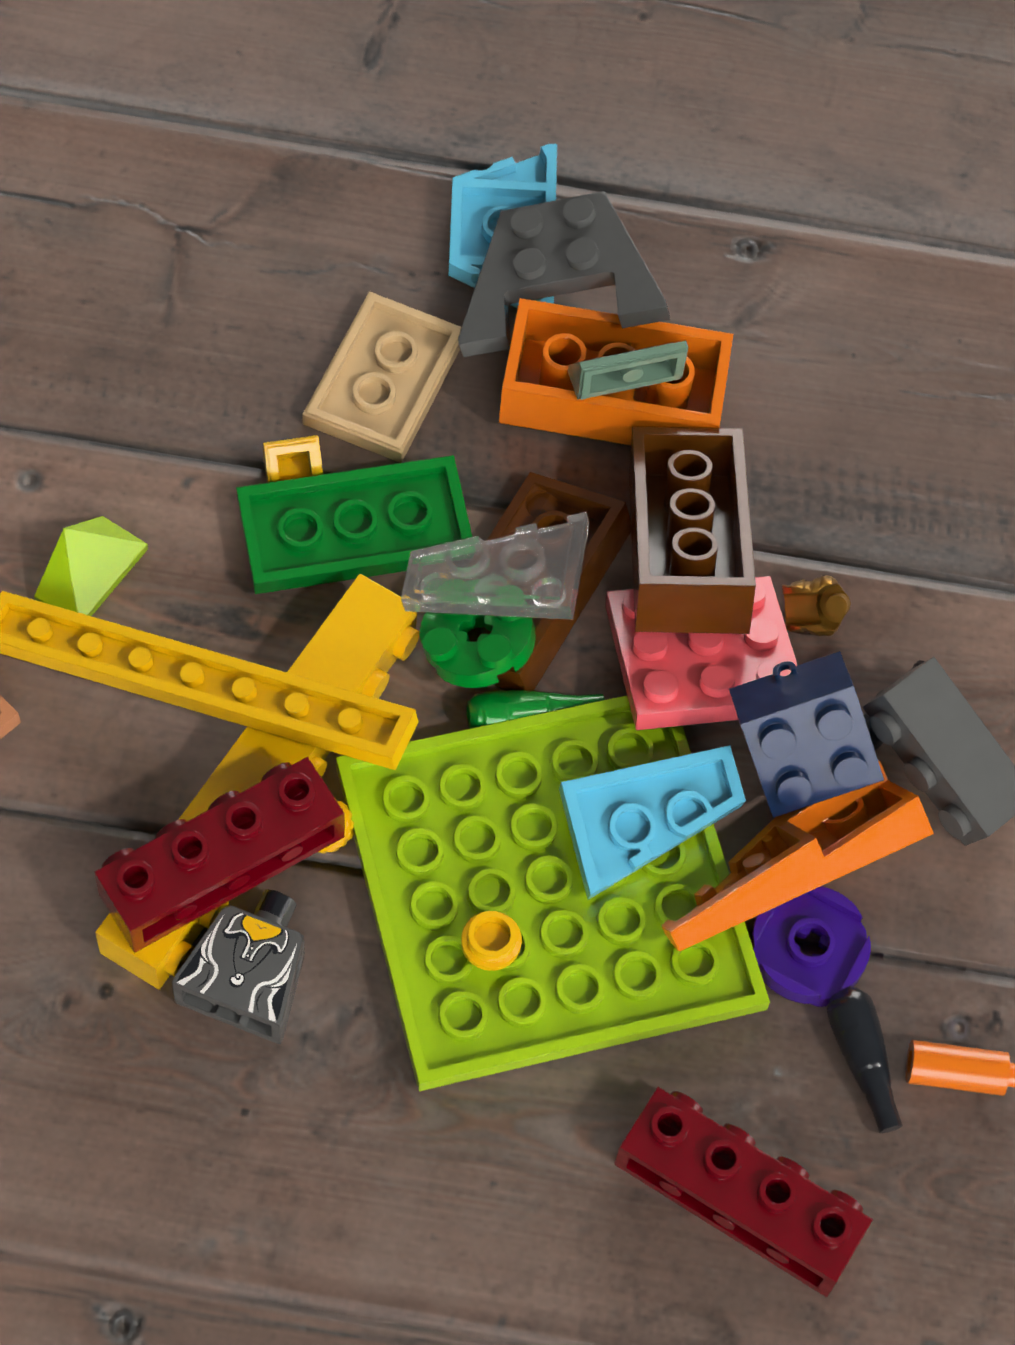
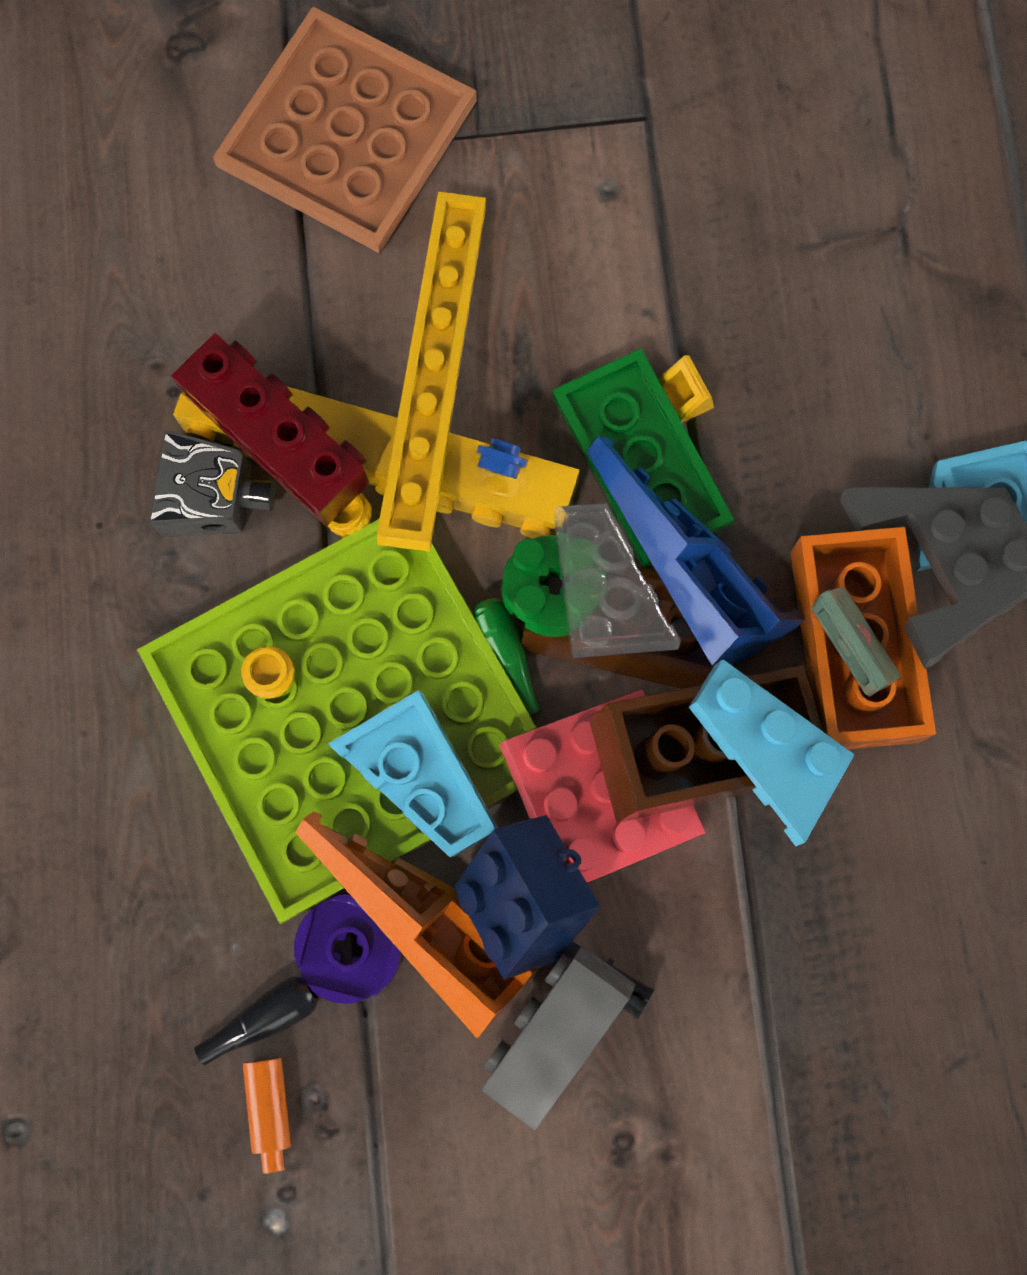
camera: 85 degrees right, 15 degrees up
(88, 565) = (536, 258): lime slope -> none
(331, 633) = (501, 458): none -> blue plate
(384, 377) = (804, 440): tan tile -> none
(519, 489) = (709, 587): none -> blue wedge
(713, 461) = (774, 745): none -> medium azure wing
(743, 1190) = (107, 941): dark red brick -> none
(815, 606) = (685, 882): pearl gold arm -> none

